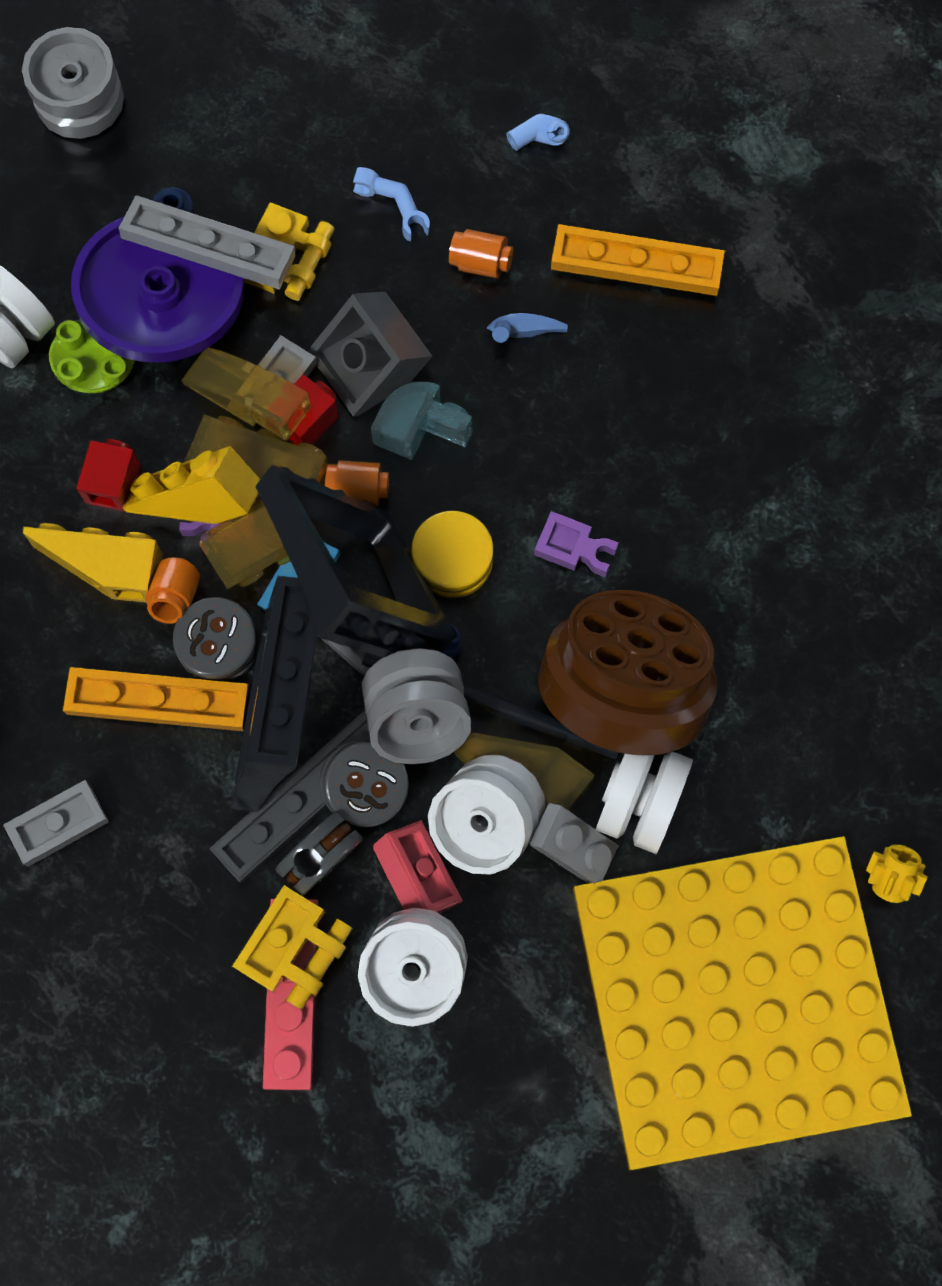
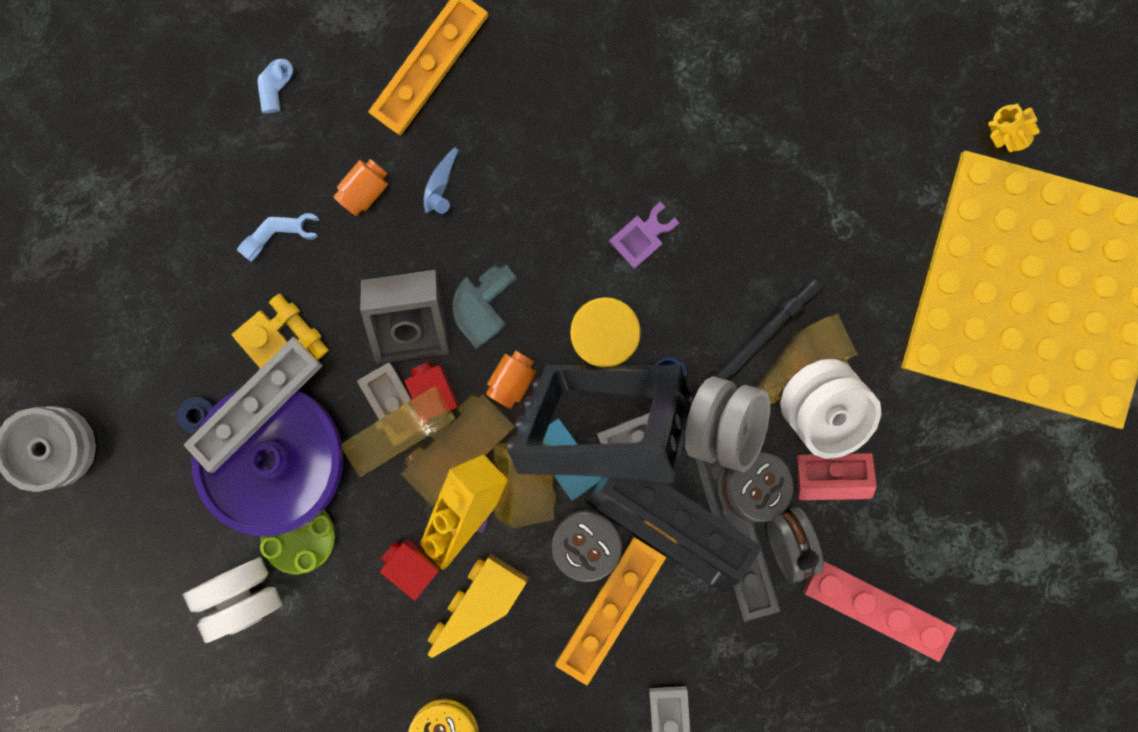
camera: 65 degrees left, 15 degrees up
(172, 589) = (531, 561): orange brick -> none
(280, 939) = (846, 604): yellow plate -> none
(401, 991) = (913, 516): white wheel -> none
(573, 844) = (879, 354): light grey plate -> none
(630, 673) = (813, 273): reddish brown wheel -> none
(645, 795) = (871, 284): white wheel -> none

